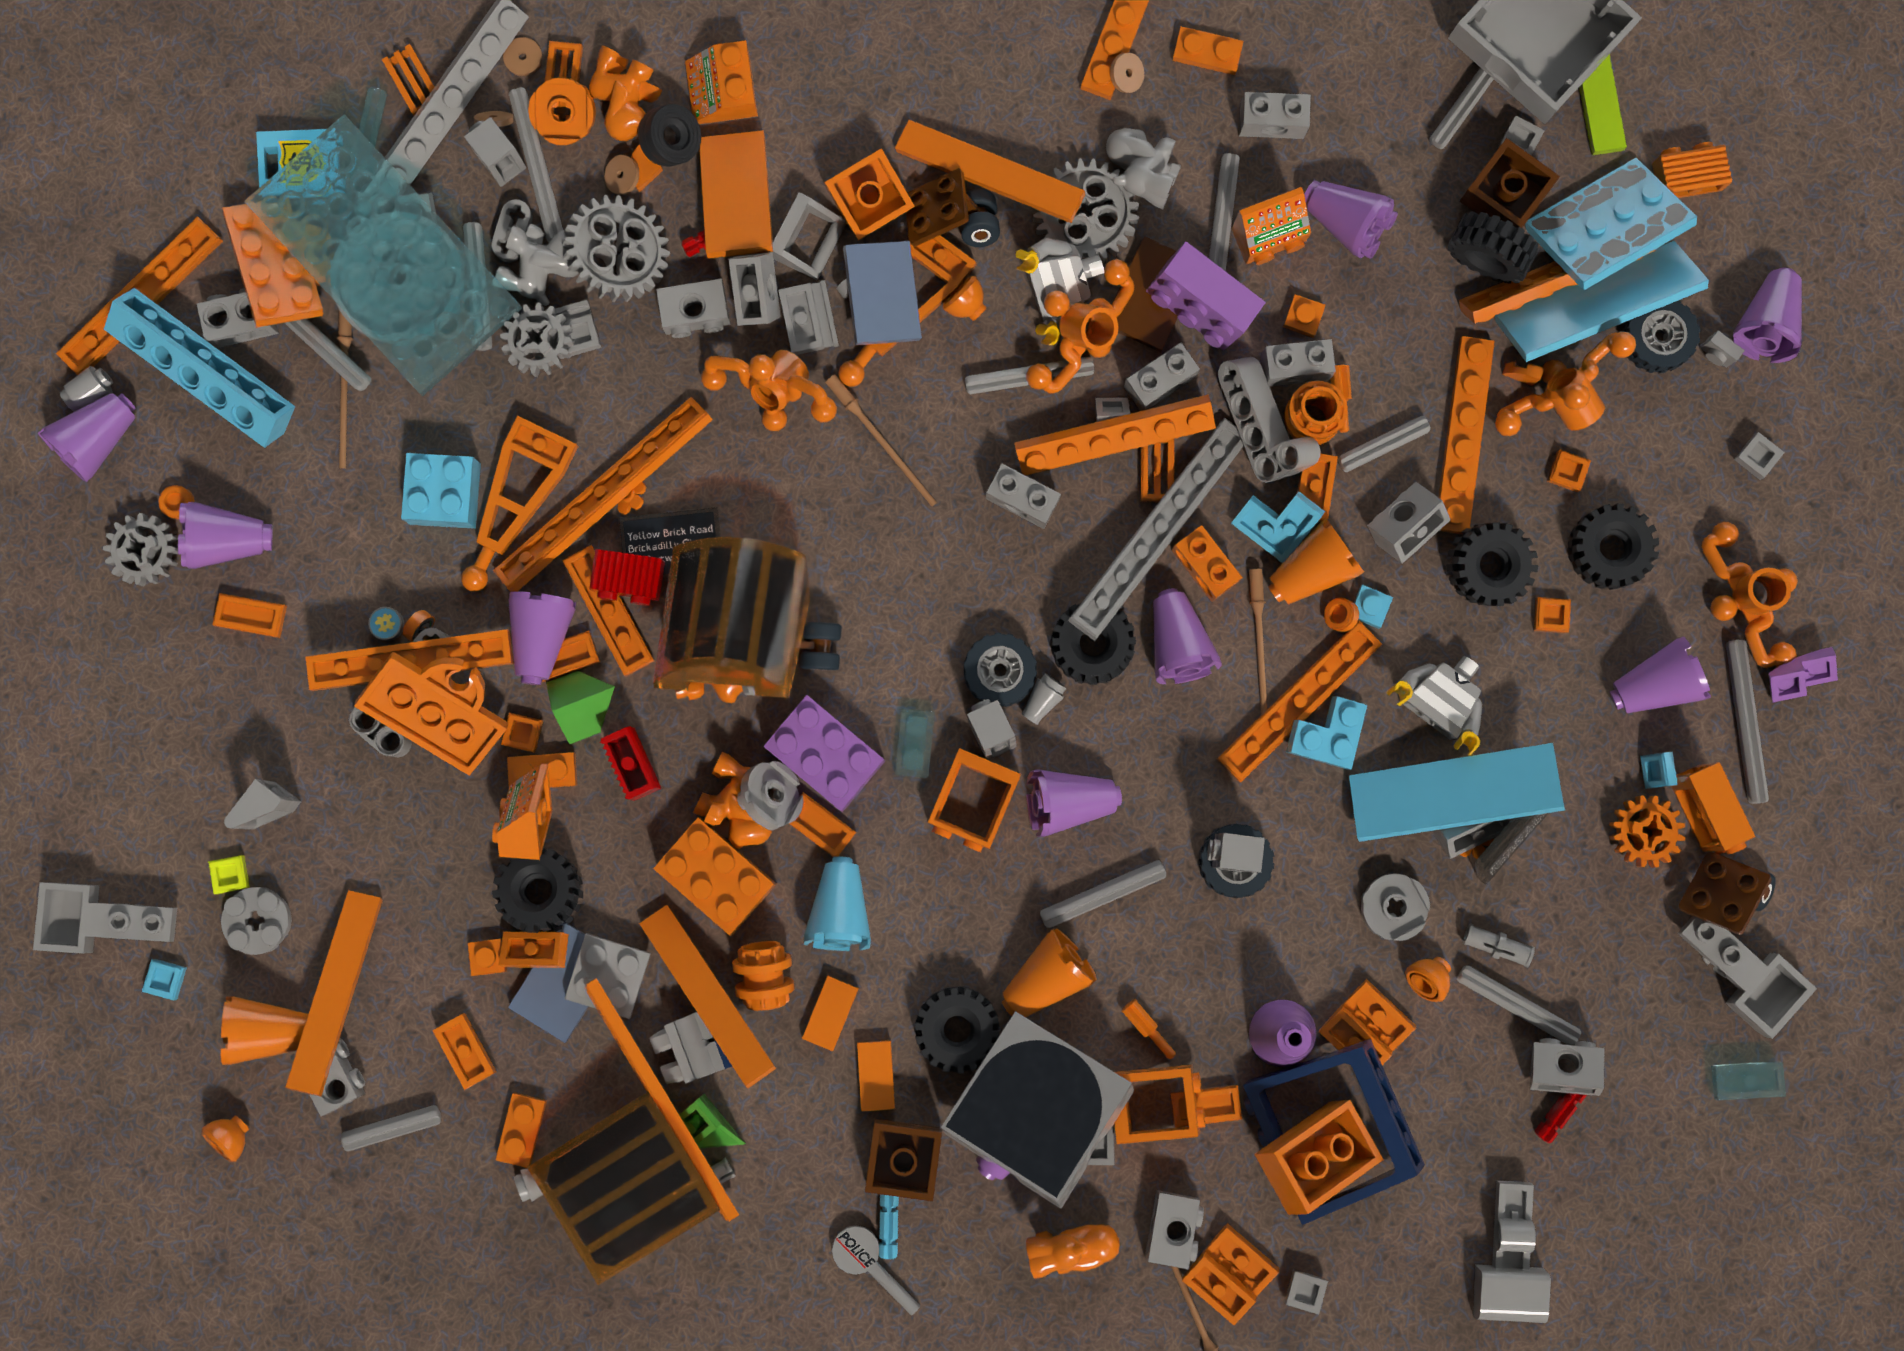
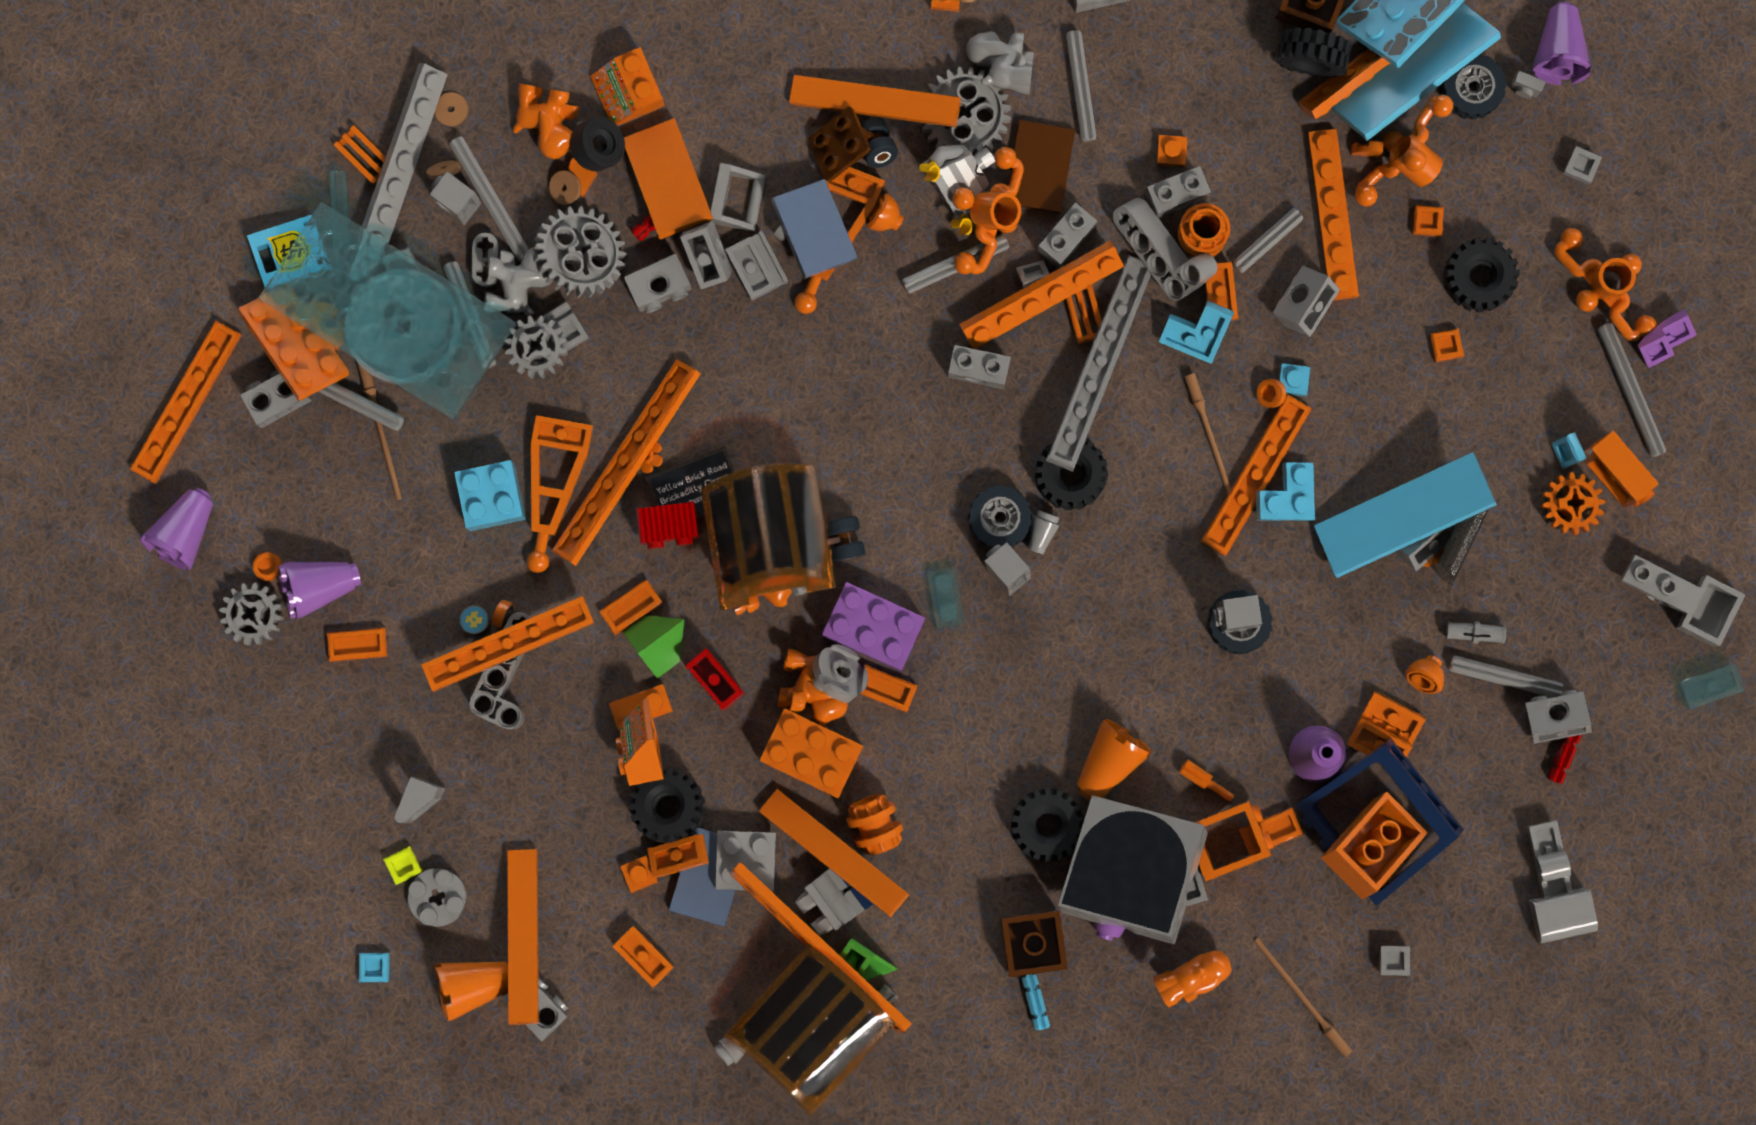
camera: 15 degrees left, 0 degrees up
(72, 917) = (283, 936): light grey plate -> none
(86, 388) = (165, 492): light grey brick -> none
(198, 367) = (258, 448): medium azure brick -> none
(226, 1137) = (465, 1082): orange brick -> none
(391, 1128) = (600, 1037): light grey axle -> none
(434, 709) = (540, 679): orange plate -> none
(521, 1130) = (708, 1009): orange plate -> none
(522, 732) = (614, 679): orange tile -> none
(537, 633) = (607, 592): medium lavender cone -> none
(566, 47) = (493, 139): orange tile -> none
(575, 97) = (492, 161): orange plate -> none
(610, 616) = (660, 562): orange tile -> none
(772, 385) = (744, 331): orange wheel -> none
(830, 1013) = (938, 841): orange tile -> none
(839, 909) = (922, 753): medium azure cone -> none
(852, 405) = (813, 328): medium nougat piece -> none
(857, 1252) = (1016, 1031): light grey piece -> none
(869, 194) = (779, 148): orange slope -> none
(876, 1075) = (990, 882): orange tile -> none
(986, 768) = (1011, 602): orange window -> none
(1068, 800) = (1087, 610): medium lavender cone -> none
(1103, 894) = (1137, 680): light grey axle -> none
(1170, 1208) = (1260, 925): light grey brick -> none
(1180, 640) = (1143, 451): medium lavender cone -> none
(1205, 297) = (1085, 159): medium lavender brick -> none
(1206, 563) = (1147, 381): orange brick -> none
(1230, 1274) = (1328, 963): orange slope -> none
(1272, 227) = (1125, 84): orange slope -> none
(1314, 566) = (1238, 359): orange cone -> none
(1342, 381) = (1218, 198): orange axle -> none
(1351, 215) = (1187, 56): medium lavender cone -> none
(1413, 913) = (1365, 623): light grey plate -> none
(1444, 699) = (1375, 440): torso -> none
(1515, 564) = (1404, 312): black tyre -> none
(1662, 681) = (1551, 376): medium lavender cone -> none
(1727, 892) = (1651, 535): reddish brown plate -> none

